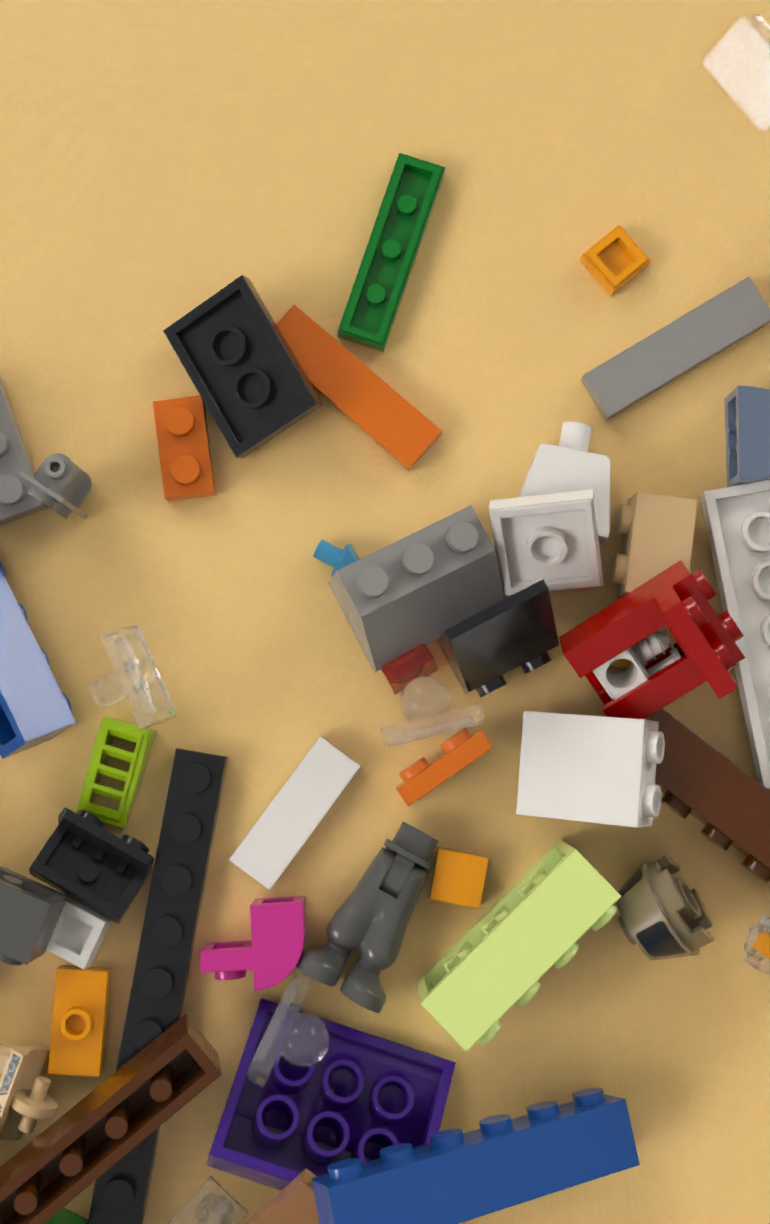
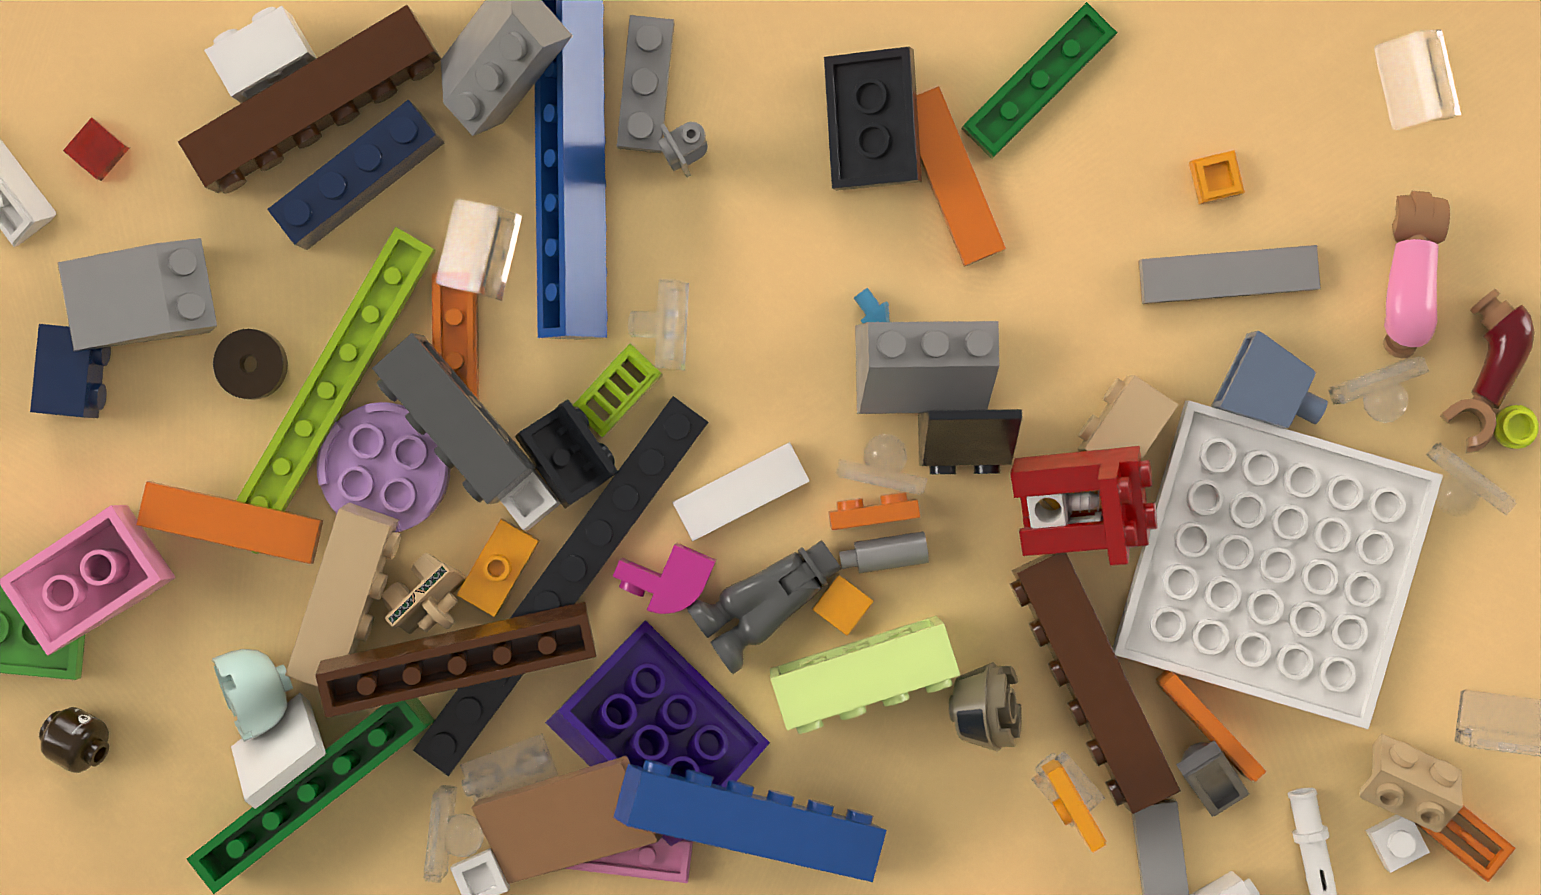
camera: 30 degrees right, 5 degrees up
(184, 448) = (794, 159): orange plate -> none
(297, 1035) = (662, 661): clear tile -> none
(409, 666) = (886, 422): clear red tile -> none
(476, 801) = (886, 553): none -> light grey cylinder
(547, 540) = (1043, 379): white tile -> none
(572, 469) = (1080, 344): white torso -> none
(590, 768) = (986, 570): white panel -> none

